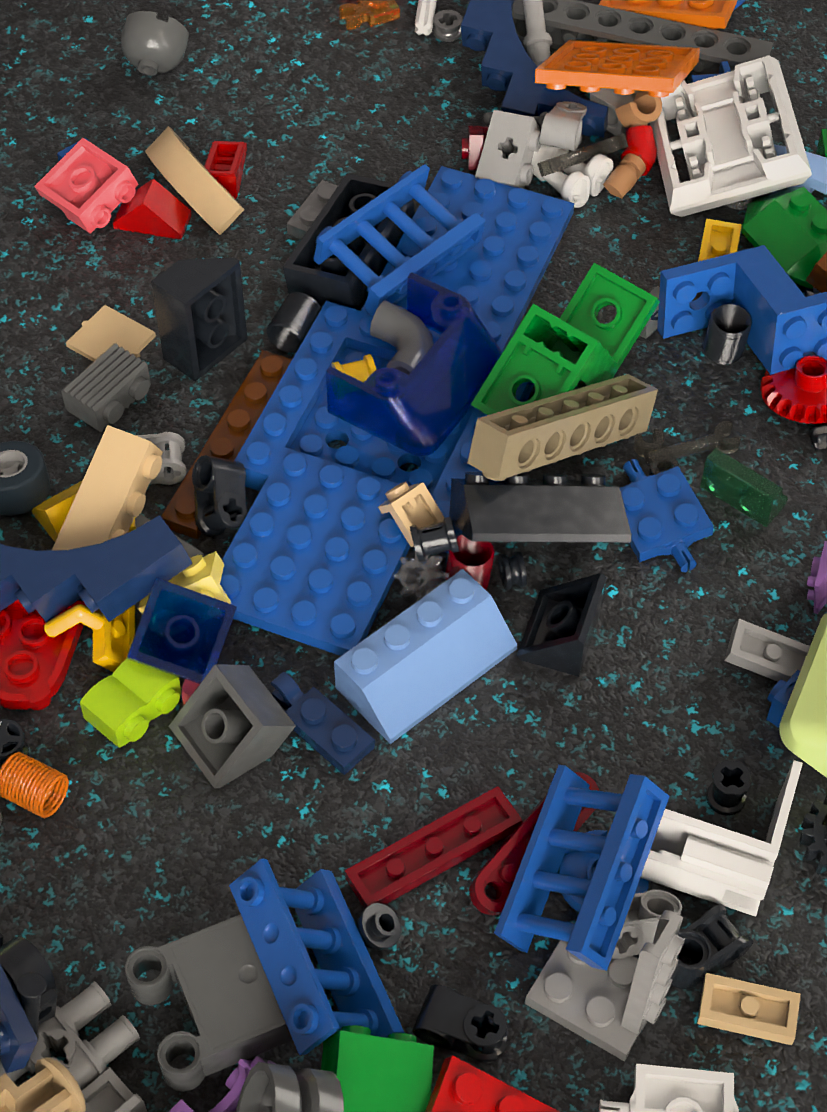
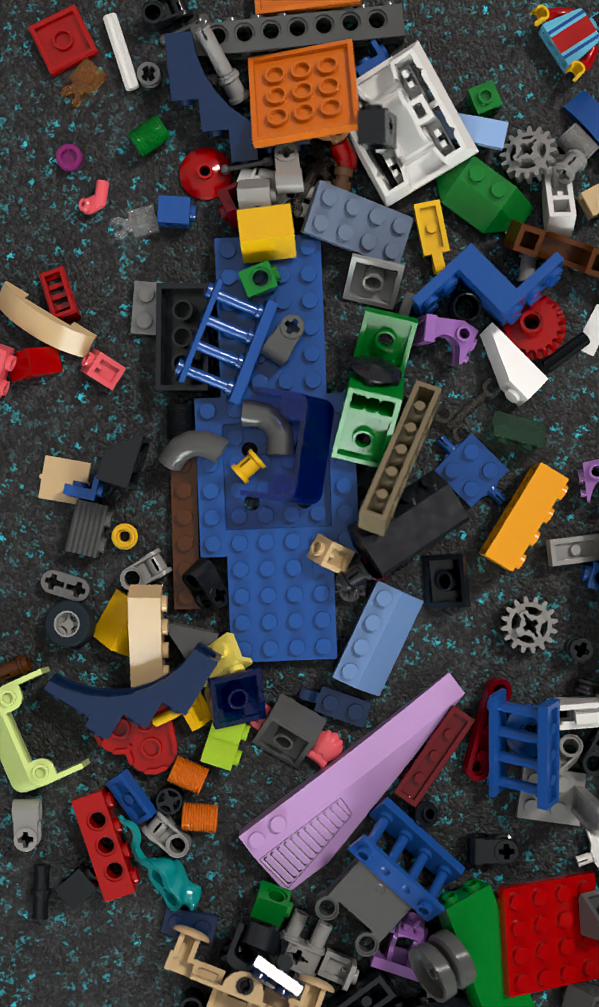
camera: 25 degrees left, 35 degrees up
(41, 437) = (64, 591): none -> flat silver beam
(51, 721) = (188, 774): none -> orange piece
(67, 950) = (271, 903): none -> green brick
(143, 345) = (81, 491): none -> blue bracket
(147, 417) = (116, 539): none -> yellow plate
(169, 861) = (324, 810): none -> lavender wedge
(231, 240) = (102, 368): none -> coral bracket
(272, 774) = (326, 748): none -> coral animal
(296, 329) = (192, 444): none -> dark grey cylinder
(315, 62) = (69, 157): none -> magenta tile
(322, 104) = (96, 201): none -> coral arm
(359, 134) = (140, 222): none -> clear plate
(408, 135) = (175, 212): none -> blue brick
(418, 65) = (149, 135): none -> green piece
(452, 120) = (202, 186): none -> red dish
(471, 269) = (280, 343): none -> dark grey piece
(478, 196) = (251, 289): none -> green brick
(506, 167) = (266, 233): none -> yellow slope
(579, 320) = (375, 370): none -> black dish
(625, 208) = (356, 223): none -> sand blue plate
(625, 256) = (373, 281): none -> light grey slope
(649, 735) = (539, 618): none -> light grey gear
(691, 340) = (464, 334): none -> medium lavender tile
(692, 101) = (377, 128): none -> black brick
(710, 576) = (523, 516): none -> light orange brick
(767, 418) = (512, 369): none -> white slope

